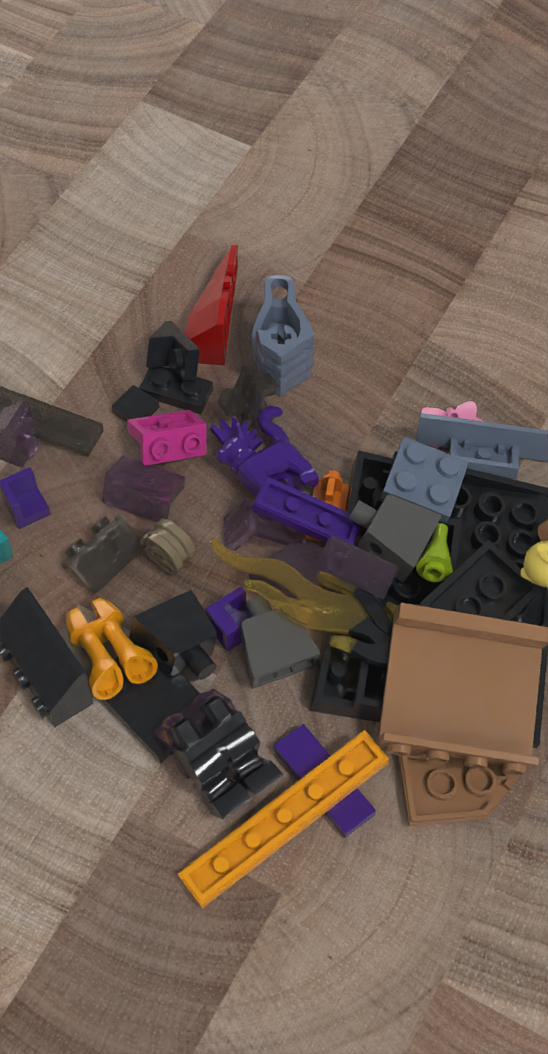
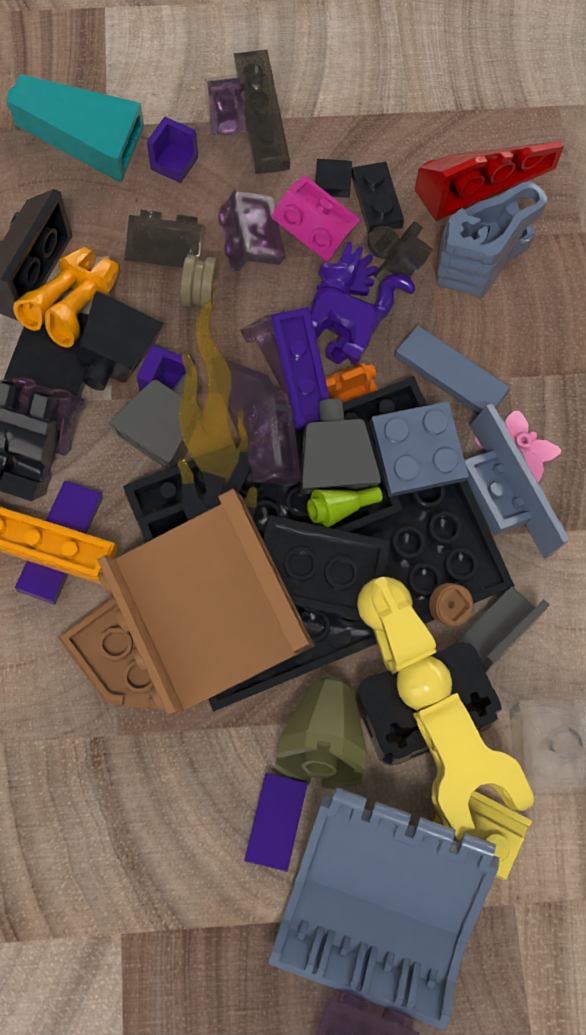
camera: 55 degrees right, 10 degrees up
(174, 349) = (401, 158): black slope -> none
(364, 429) = (451, 371): none -> sand blue tile

